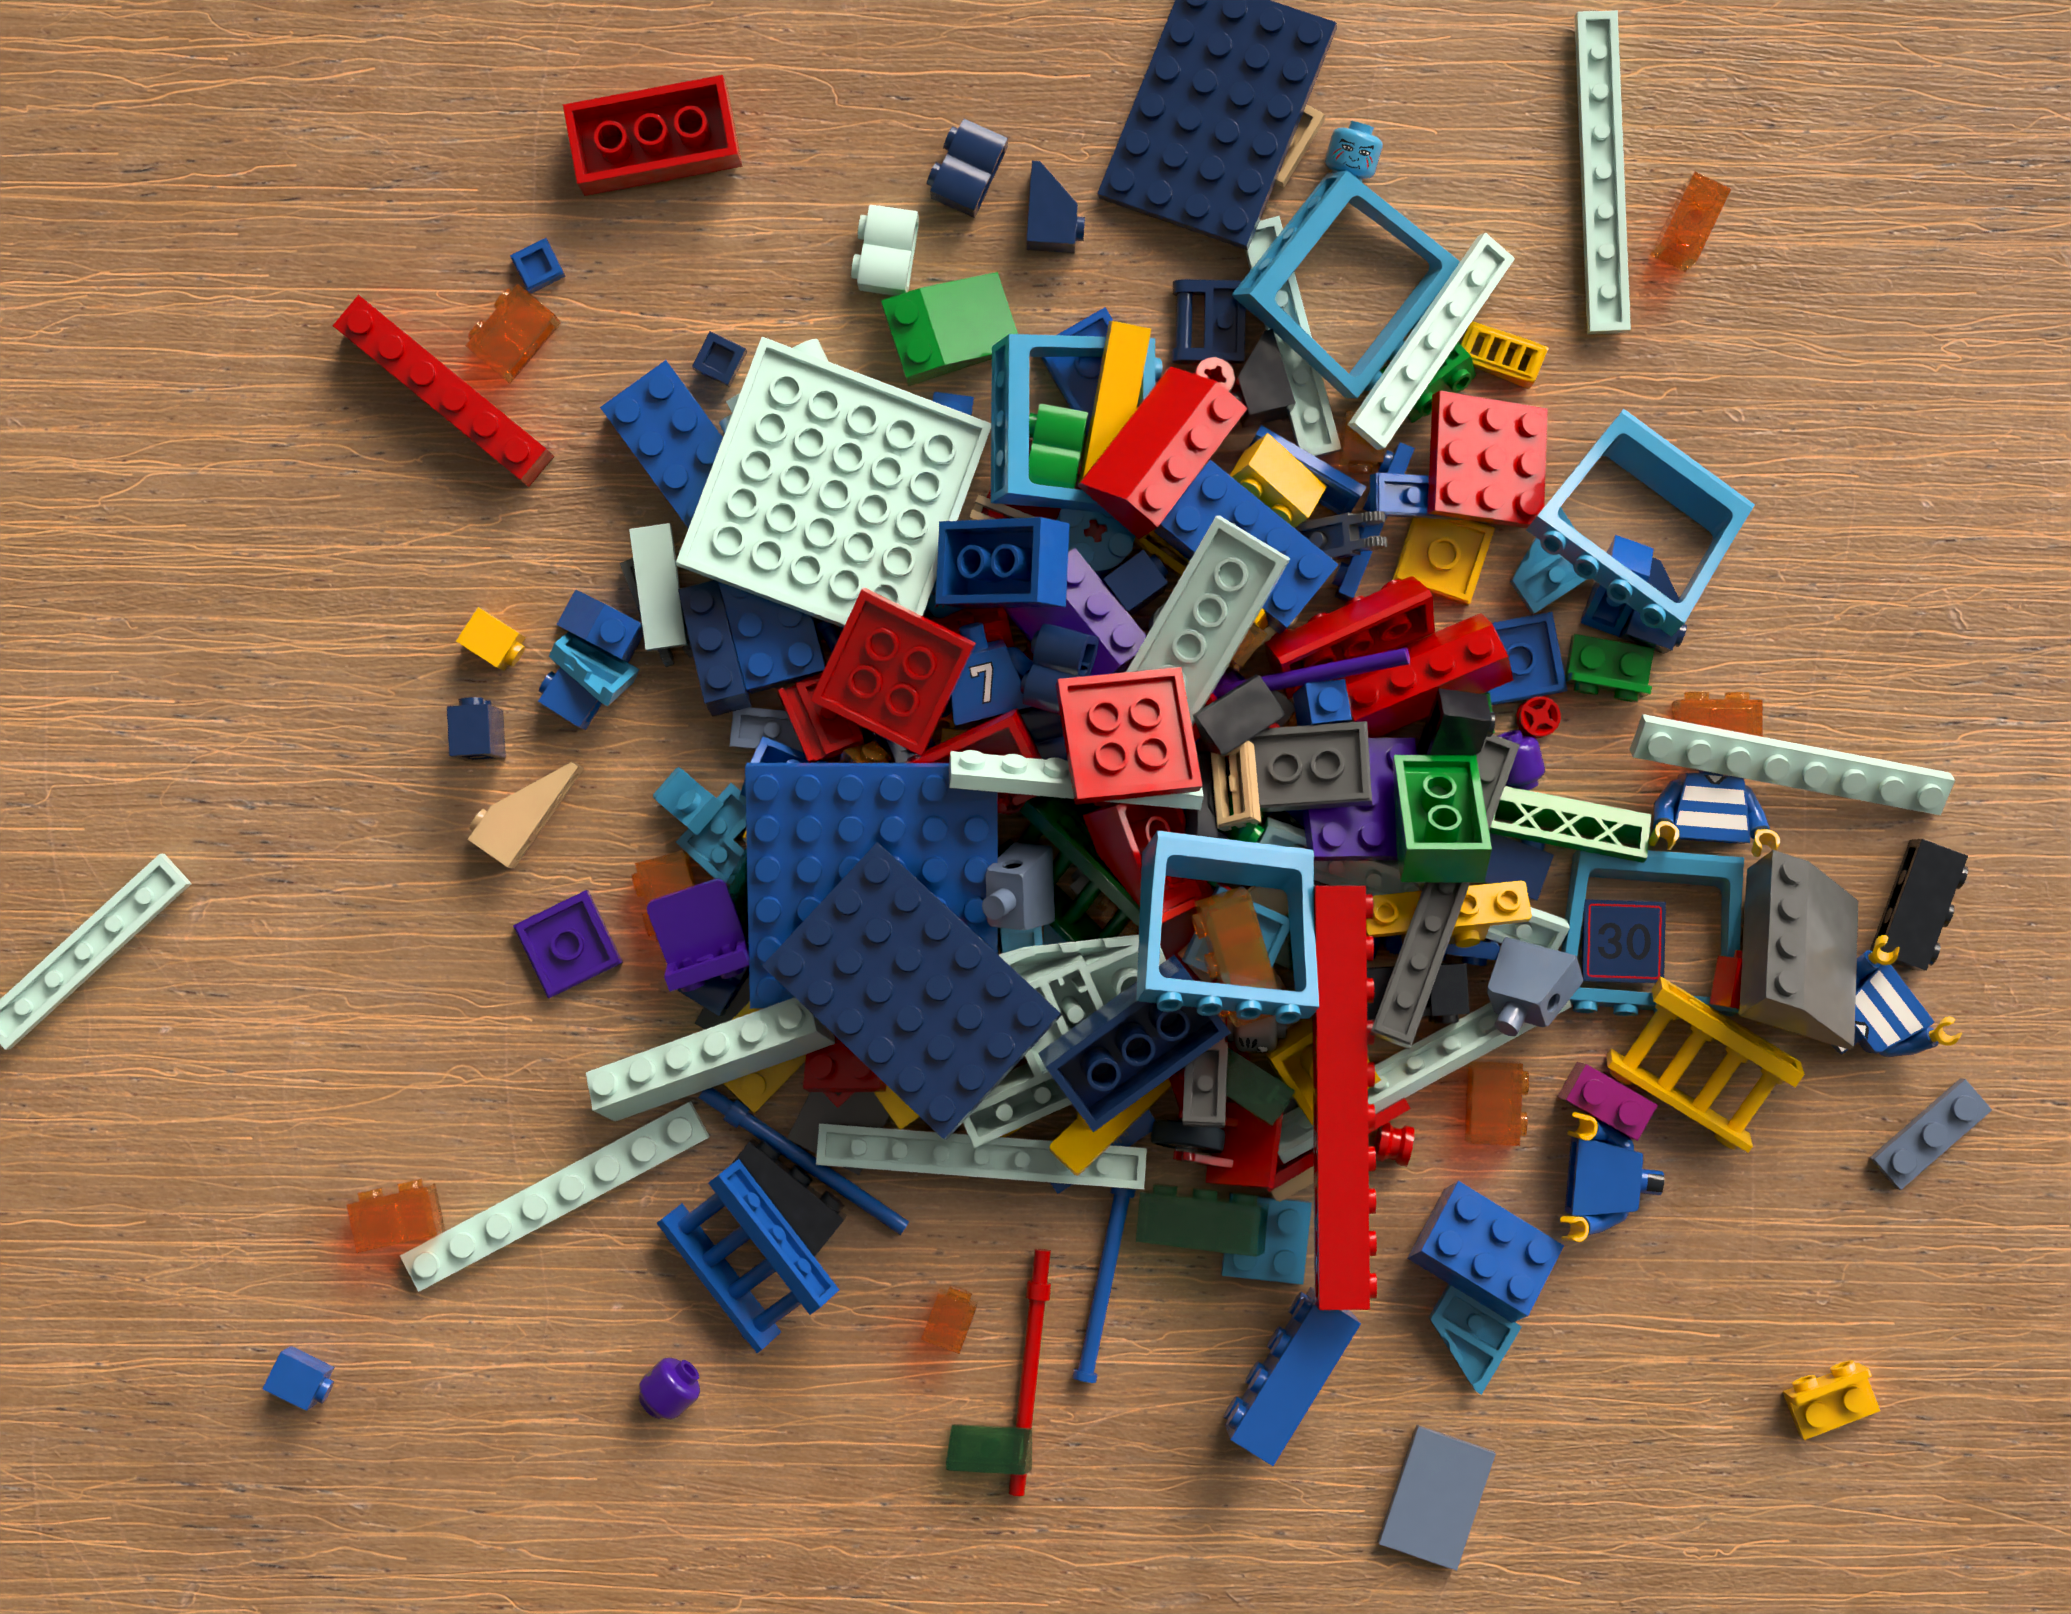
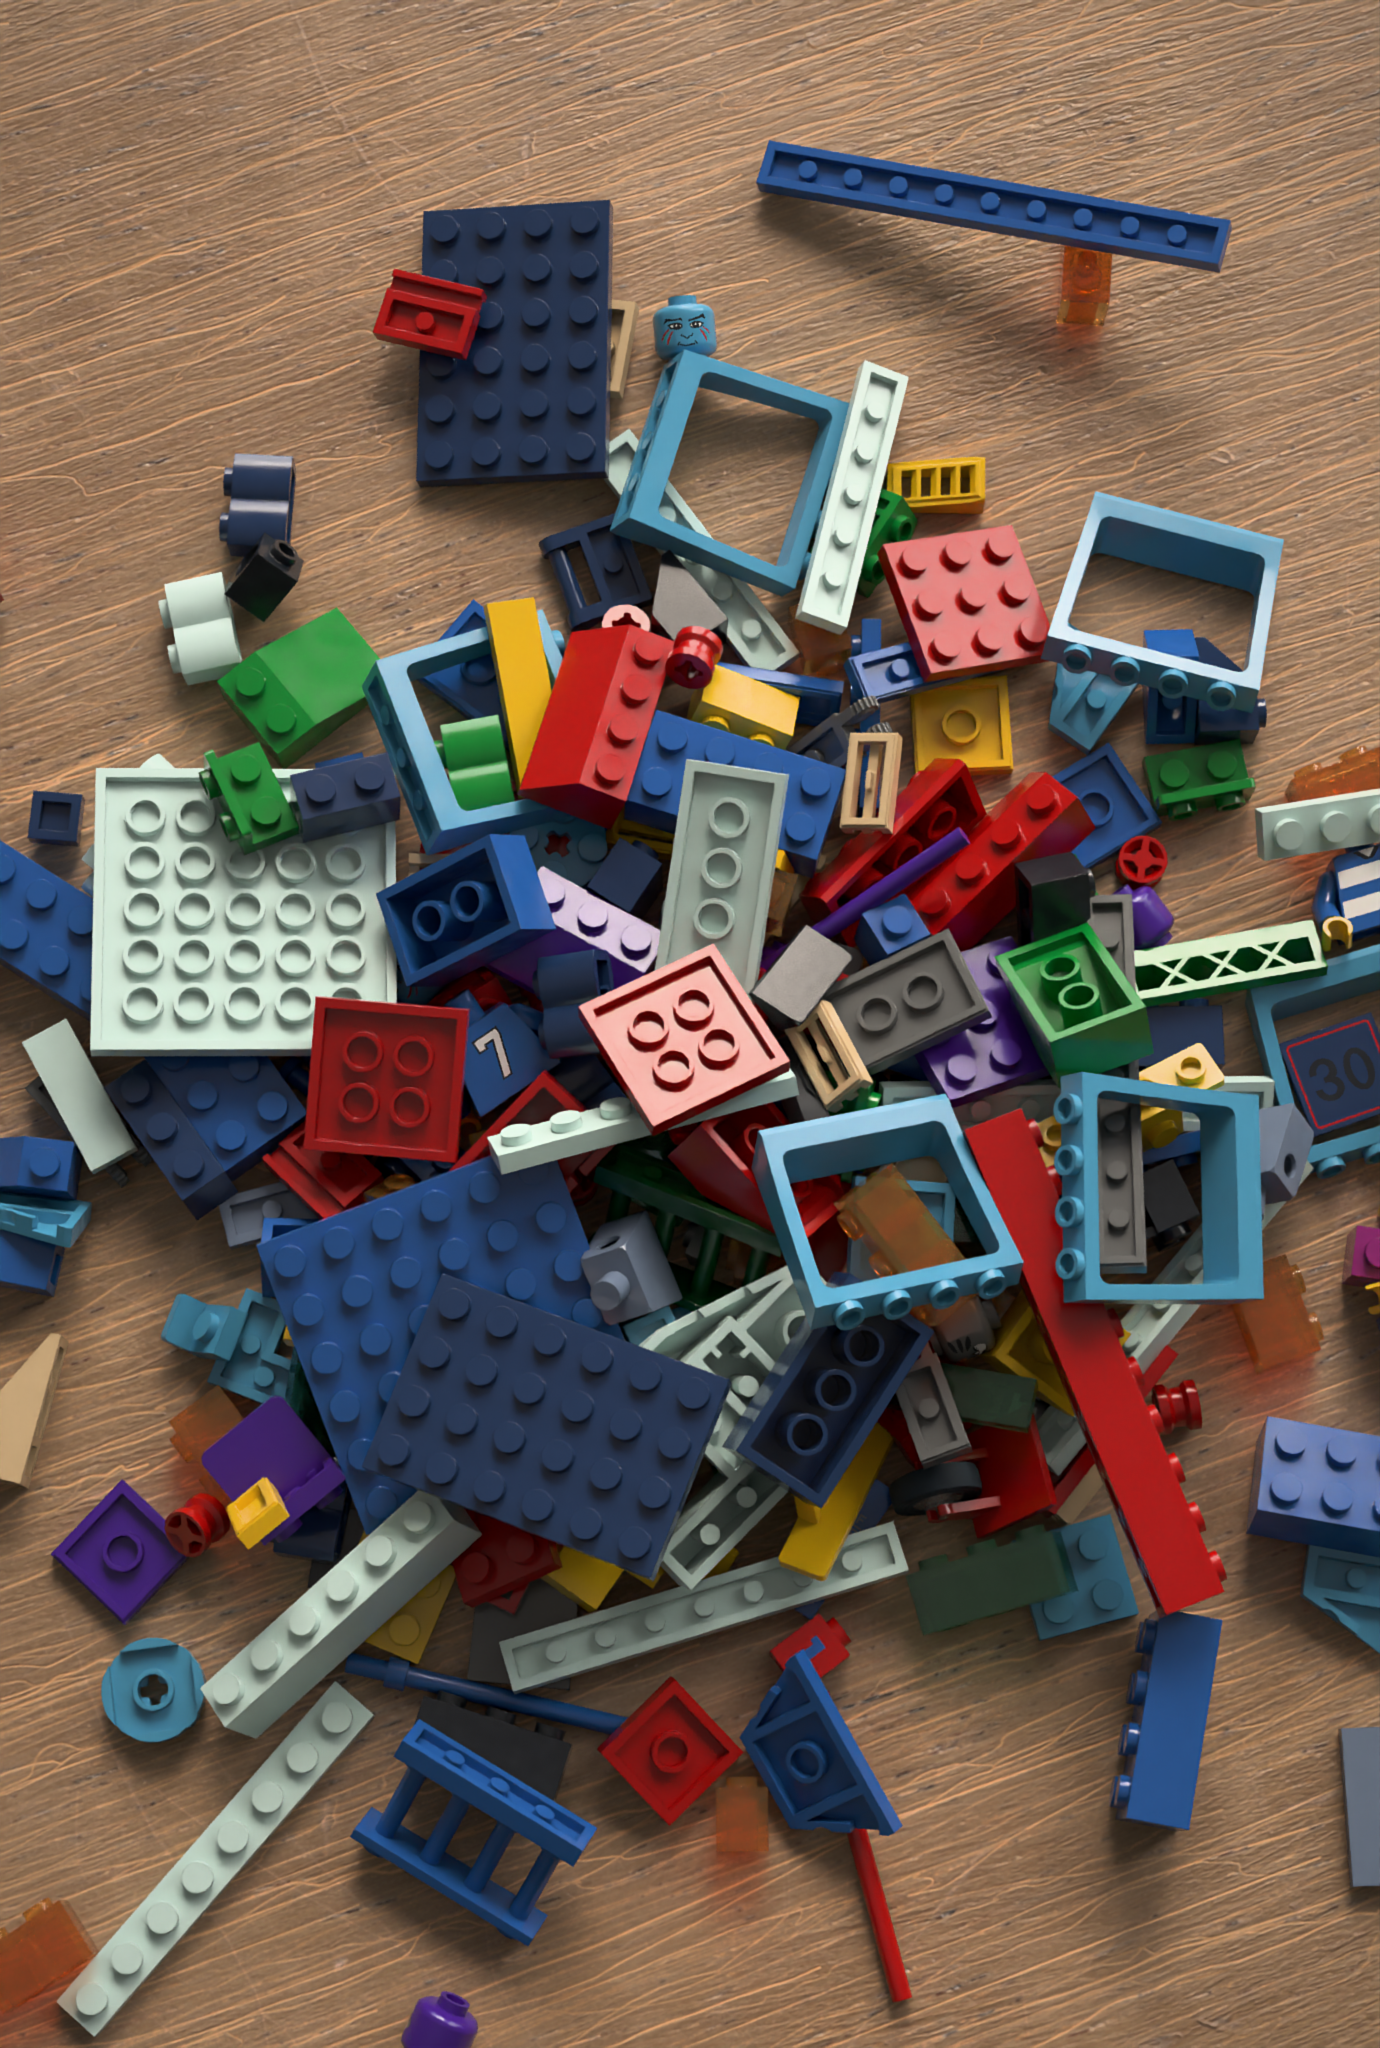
camera: 20 degrees left, 10 degrees down
(541, 1036) = (131, 1672): none -> dark azure plate
(628, 948) = (197, 1525): none -> red wheel
(672, 966) = (257, 1512): none -> yellow tile
(871, 406) = (249, 797): none -> green bracket
(915, 1250) = (670, 1750): none -> red plate
(944, 435) = (345, 797): none -> dark blue brick
(949, 228) = (264, 576): none -> black brick
(989, 1449) = (849, 1954): clear green slope -> none
(1018, 1299) = (813, 1758): none -> blue wing
(1048, 1219) = (822, 1642): none -> red brick
(1051, 214) = (374, 521): dark blue slope -> none
(1103, 1285) = (906, 1705): blue bar -> none
(1158, 63) = (429, 314): none -> red plate
(1256, 427) = (694, 657): none -> red wheel
(1338, 614) = (868, 822): none -> tan tile
(1496, 1011) = (1227, 1186): none -> dark azure windscreen
(1602, 172) = (973, 267): light aqua plate -> none
(1639, 146) = (995, 206): none -> blue plate

